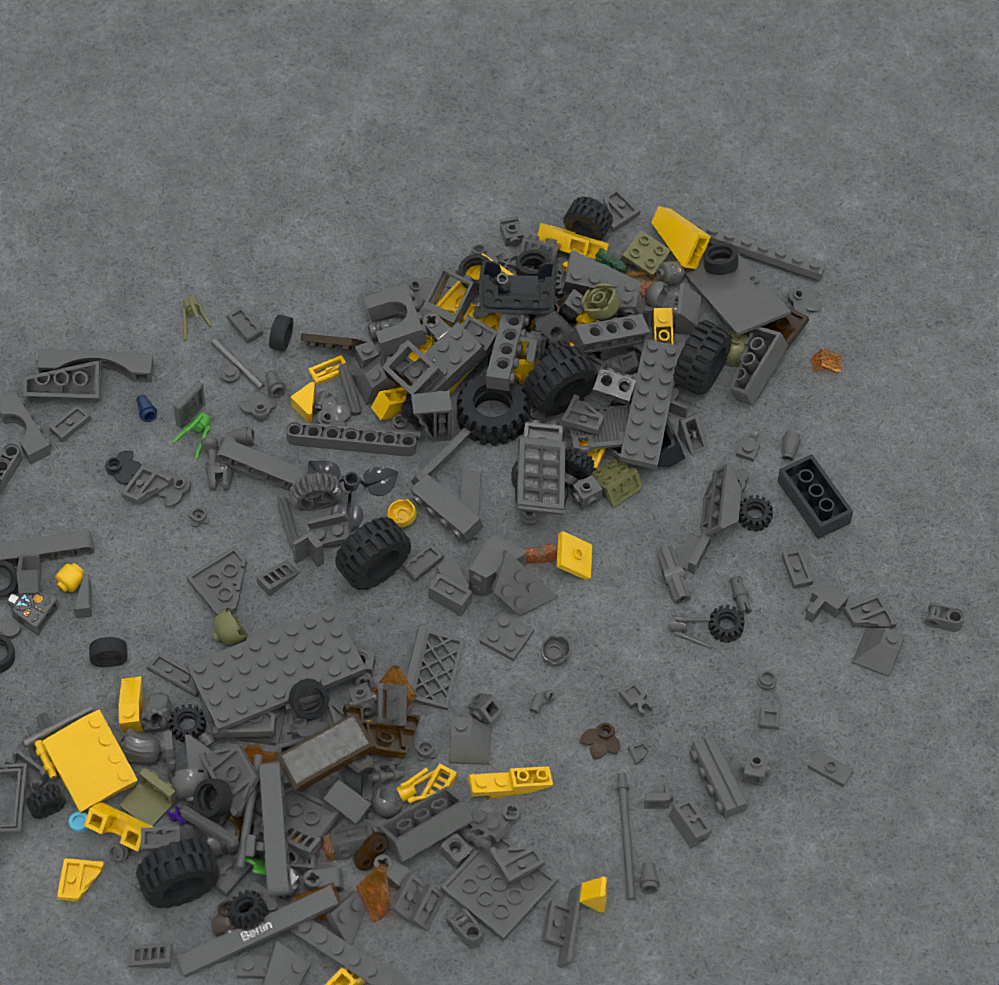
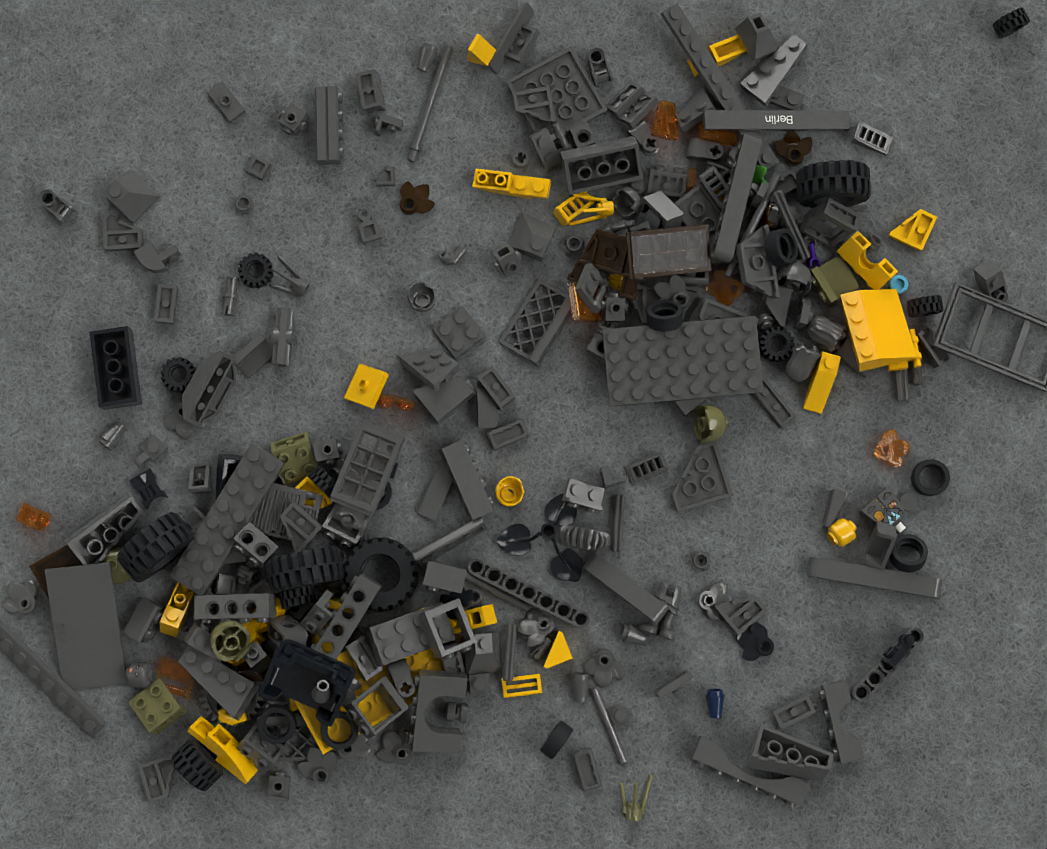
camera: 160 degrees left, 25 degrees up
(39, 670) = (894, 447): none -> clear orange plate
(57, 726) = (894, 380): flat silver bar -> none
(108, 652) = (829, 436): black tyre -> none
(199, 424) = (668, 665): bright green plant -> none
(242, 902) = (790, 144): black tyre -> none
(330, 341) = (502, 708): dark brown wing -> none
(369, 851) = (658, 160): dark brown plate -> none
(373, 553) = (556, 441): black tyre -> none
(611, 261) = (200, 711): clear green plate -> none
(656, 294) = (168, 650): dark grey hair -> none
(681, 236) = (111, 713): yellow slope -> none
(720, 251) = (77, 682): black tyre -> none
(744, 417) = (146, 480): none -> black piece

